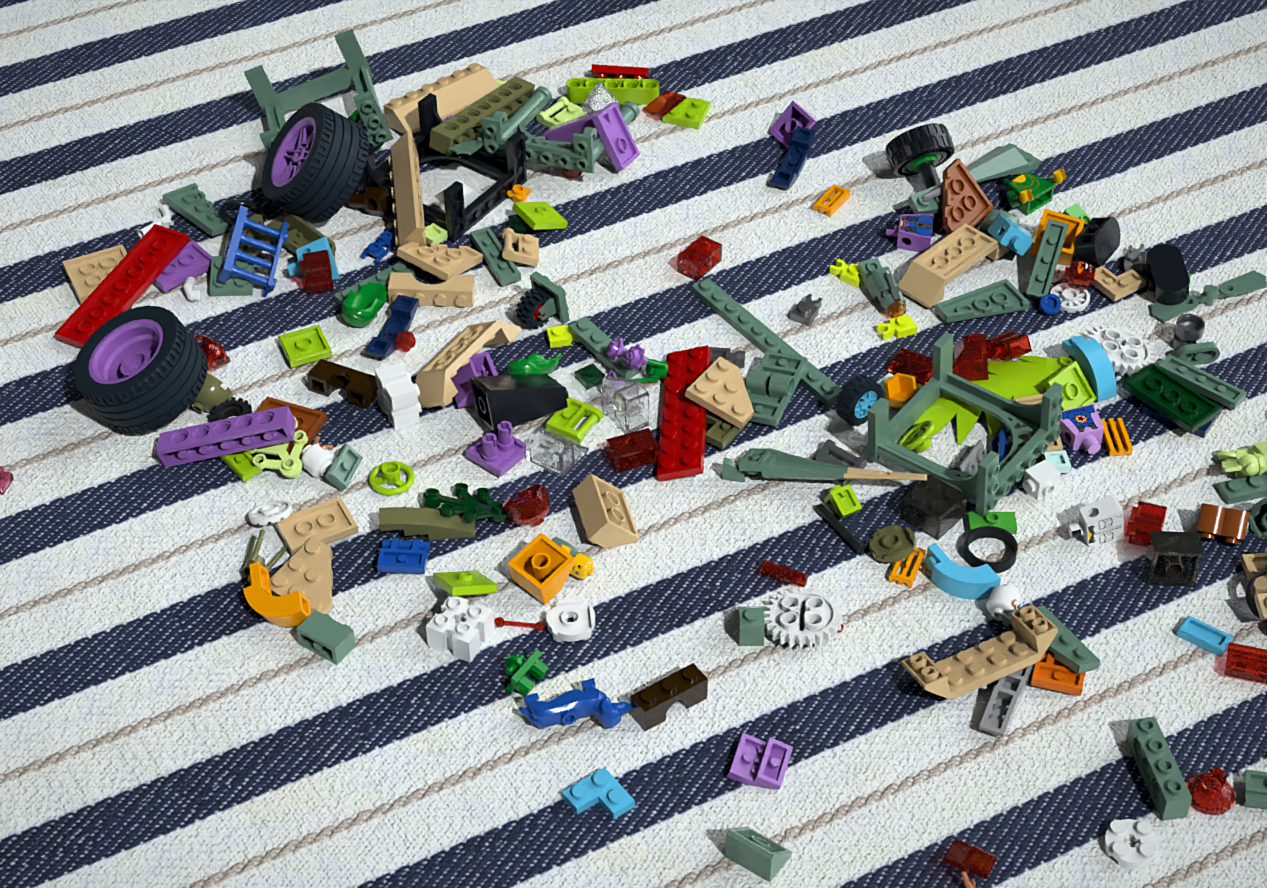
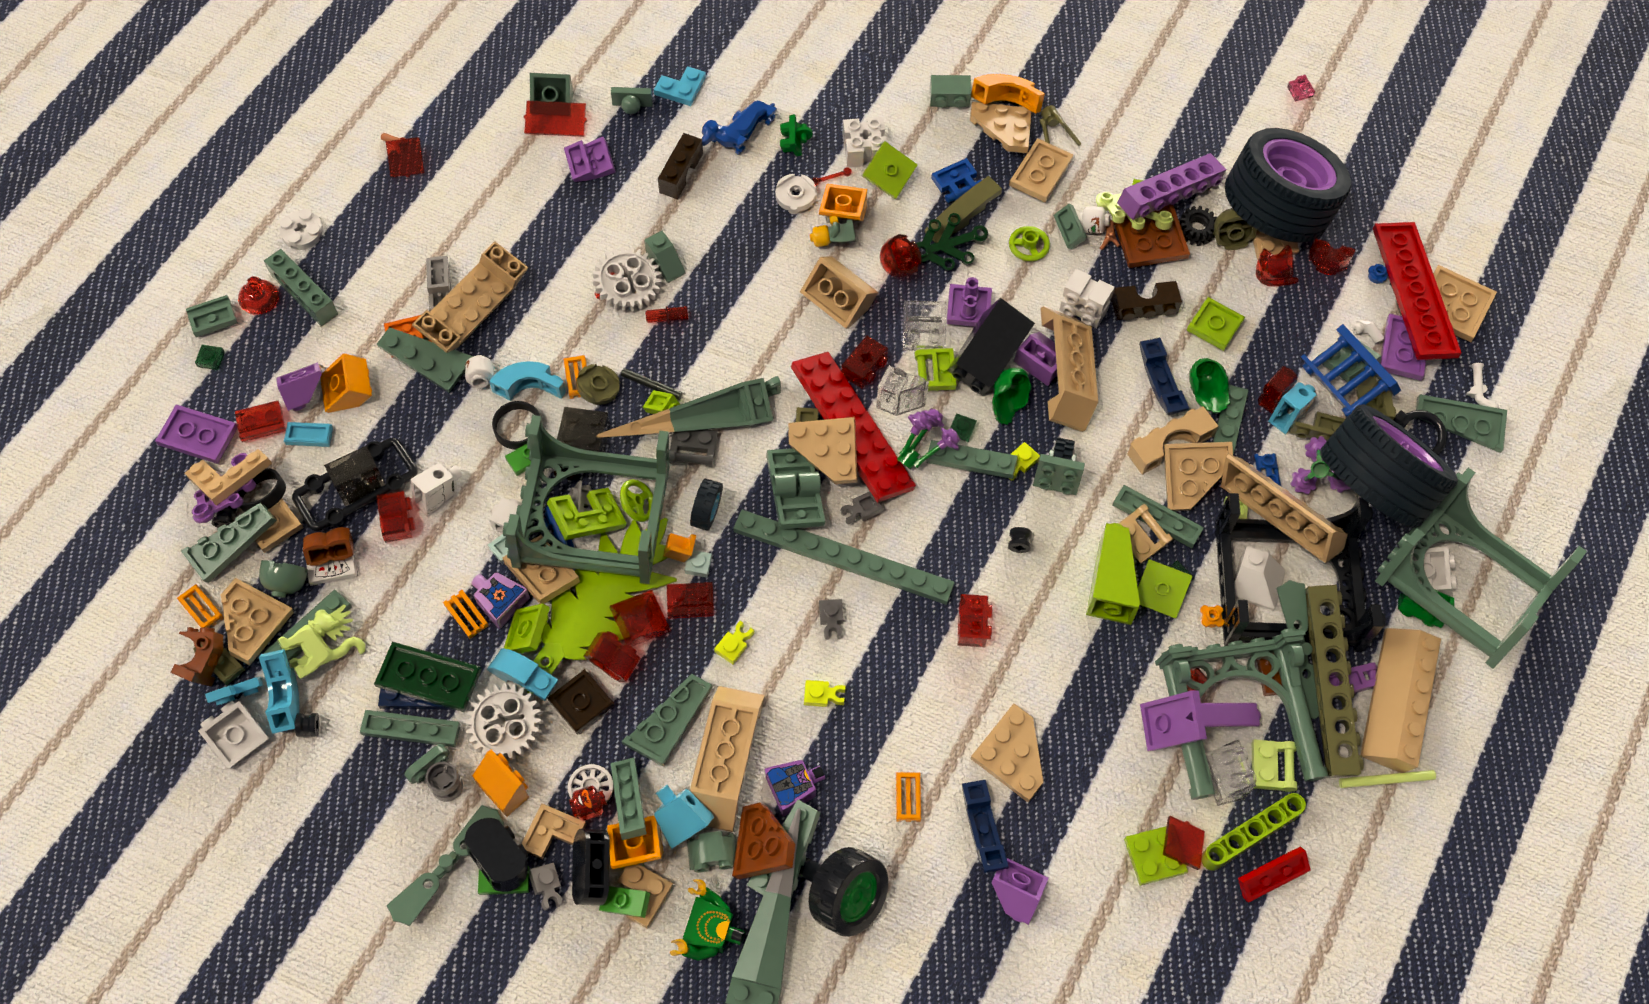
camera: 145 degrees right, 20 degrees up
(270, 512) = (1083, 160): white wheel -> none
(361, 227) = (1306, 479): none -> medium lavender plant
(374, 200) = (1328, 508): dark brown piece -> none
(405, 340) = (1141, 372): clear red plate -> none
(572, 228) = (1114, 581): none -> lime slope
(616, 285) = (1020, 539): none -> black wheel
(668, 799) = (631, 98): none -> sand green tile
(736, 190) = (1012, 753): none -> tan plate
(769, 824) = (555, 118): none -> clear red piece
(882, 287) = (775, 677): sand green plate -> none
(985, 431) = (603, 518): none -> lime plate
(1047, 339) = (580, 701): none -> dark brown plate
(1050, 304) = (602, 756): blue tile -> none
(1141, 313) = (500, 783): none -> light orange slope
(1143, 586) = (335, 516): none -> black bar
(1148, 653) = (345, 383): none -> light orange slope
(1195, 675) = (299, 386): none -> medium lavender slope

